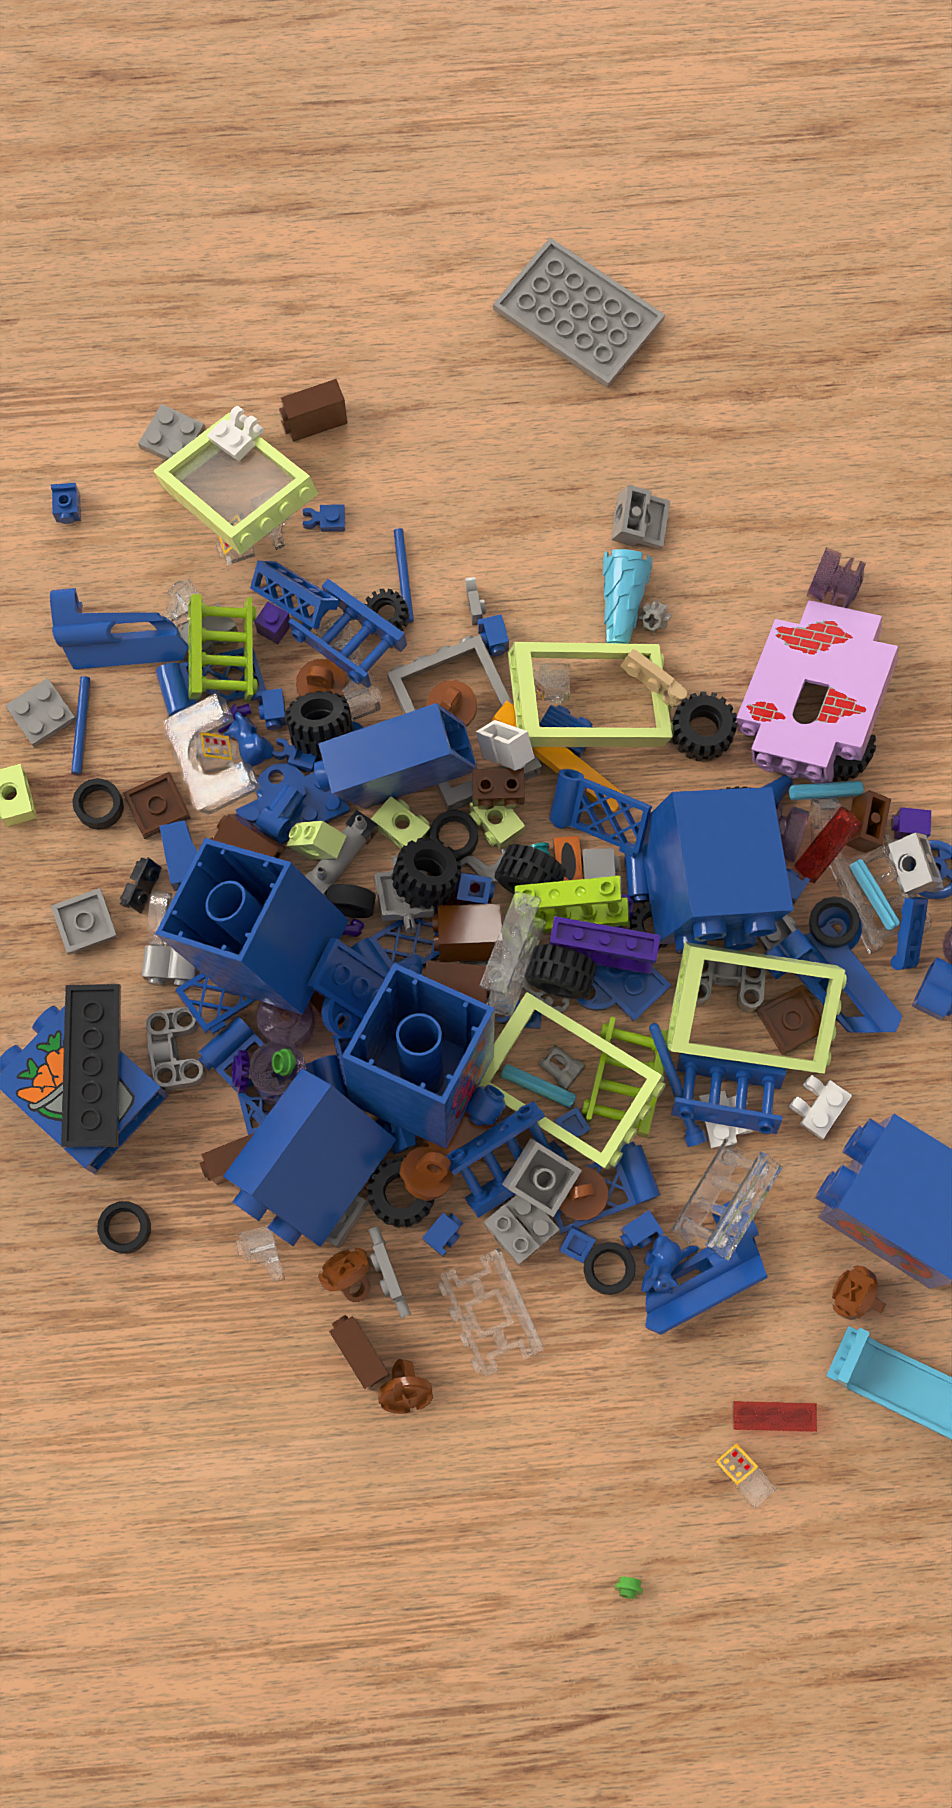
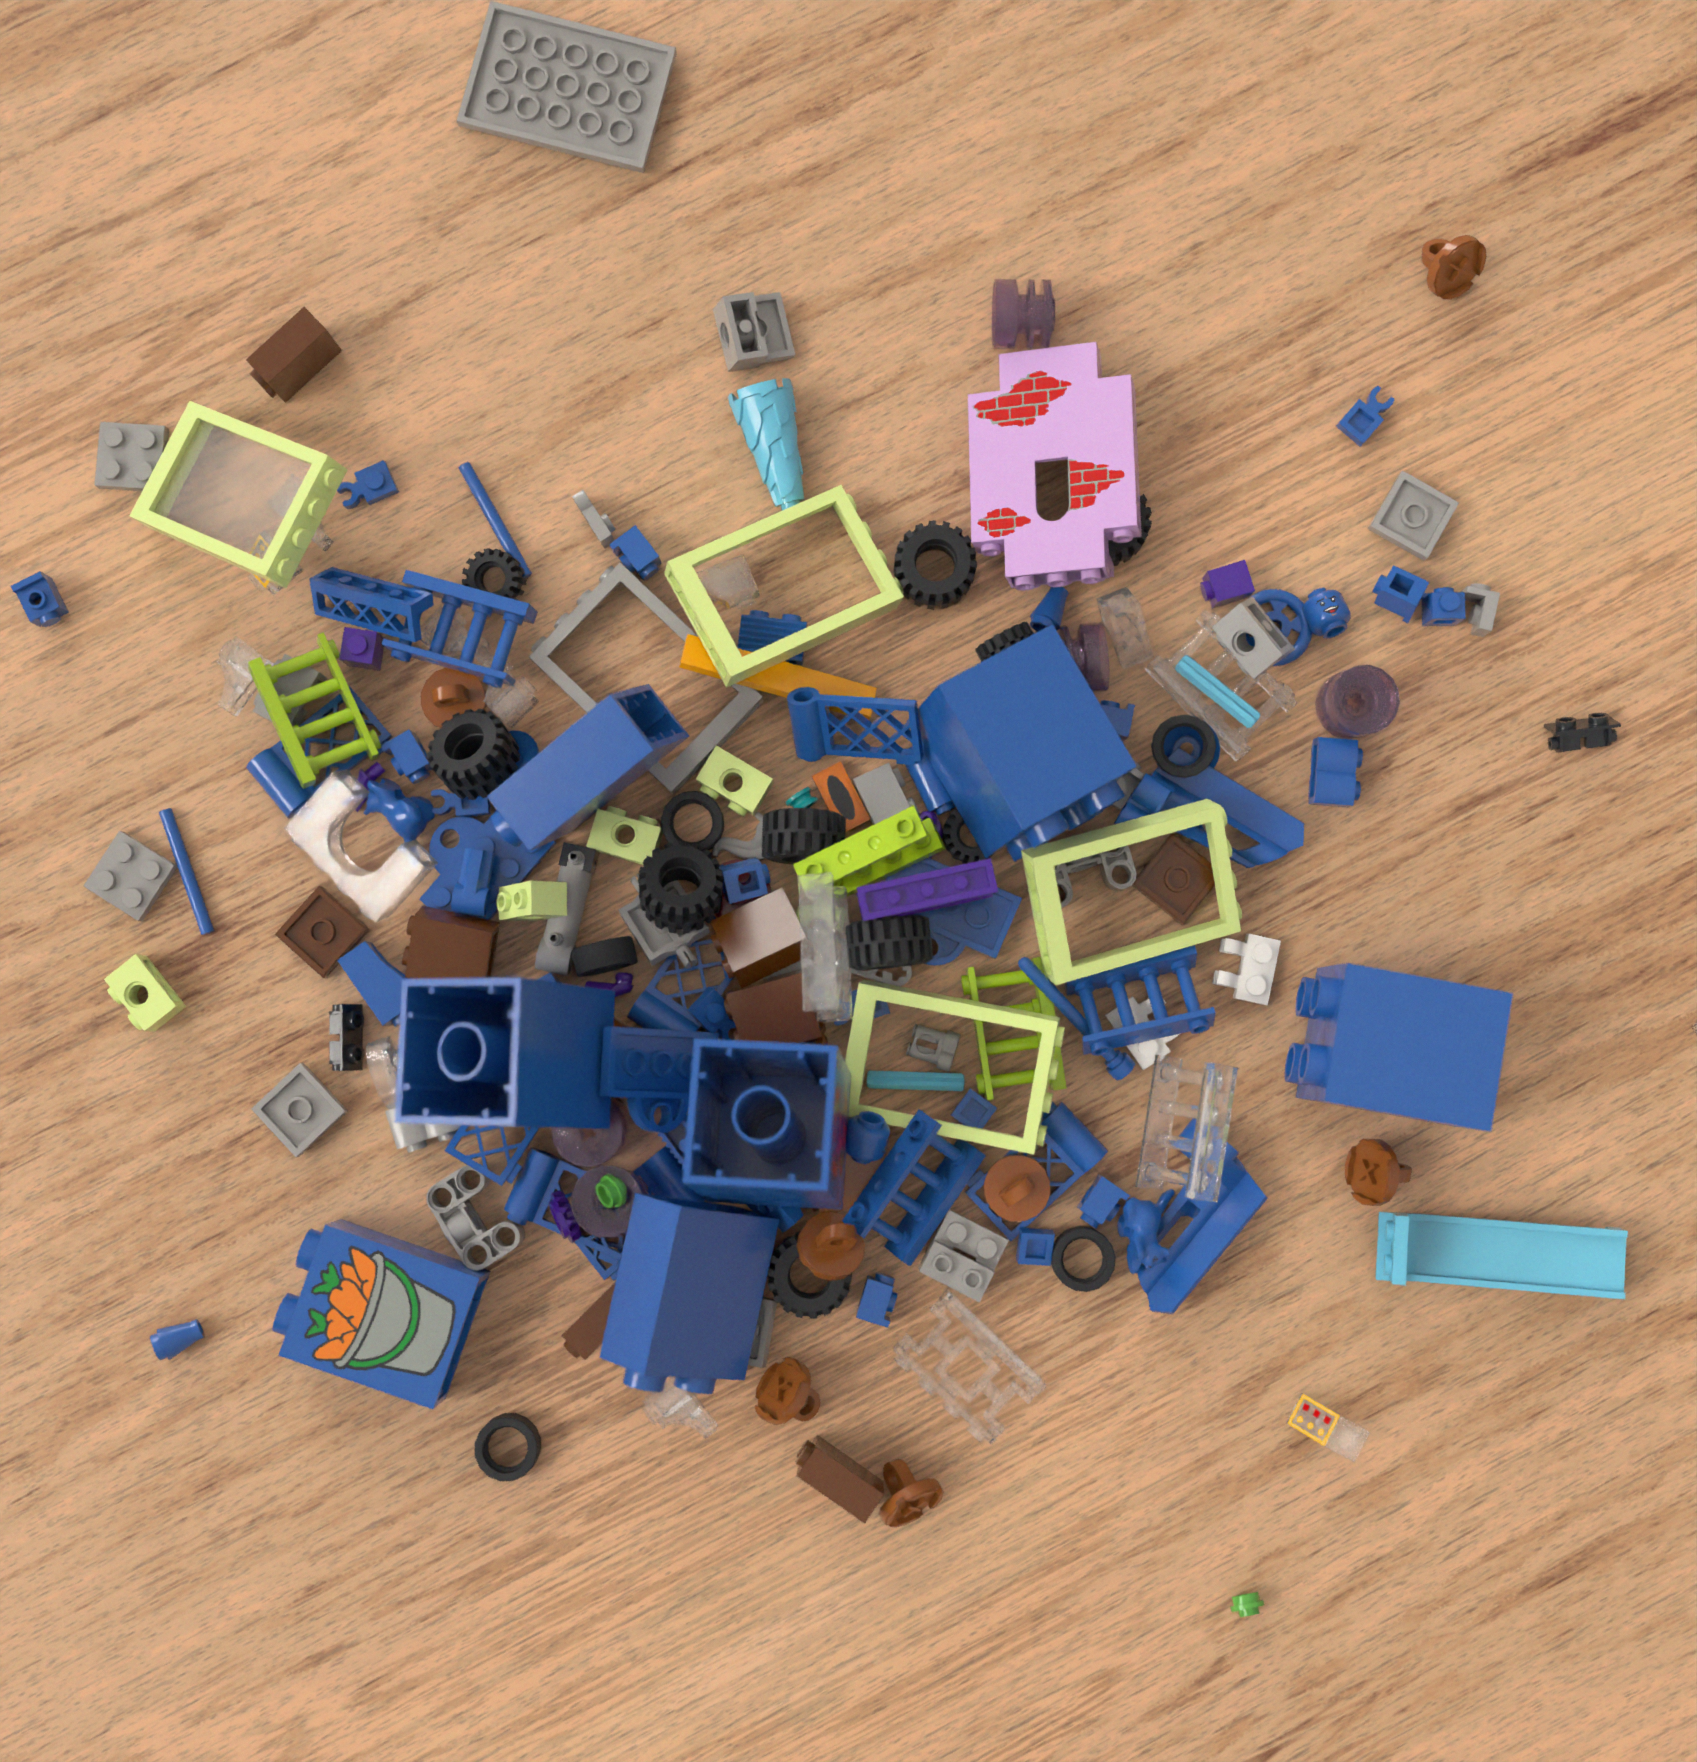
camera: 20 degrees left, 10 degrees up
(87, 788) = (226, 955): black tyre -> none
(89, 639) = (151, 767): blue panel -> none
(91, 1066) = (387, 1290): black plate -> none
(215, 752) = (364, 840): clear slope -> none
(230, 437) = (207, 438): white plate -> none
(389, 1283) = (842, 1385): light grey plate -> none
(456, 699) = (623, 663): dark orange tile -> none
(498, 788) = (722, 748): reddish brown brick -> none
(505, 745) = (709, 694): white piece -> none
(541, 1177) = (965, 1195): light grey brick -> none
(654, 678) = (853, 533): tan hinge -> none
(655, 616) = (821, 449): light grey gear -> none
(774, 1416) = (1334, 1346): clear red plate -> none
(826, 790) = (1111, 586): medium azure axle -> none
(828, 844) = (1139, 653): clear red plate -> none
(872, 812) = (1174, 604): reddish brown brick -> none
(910, 933) = (1277, 721): blue plate -> none

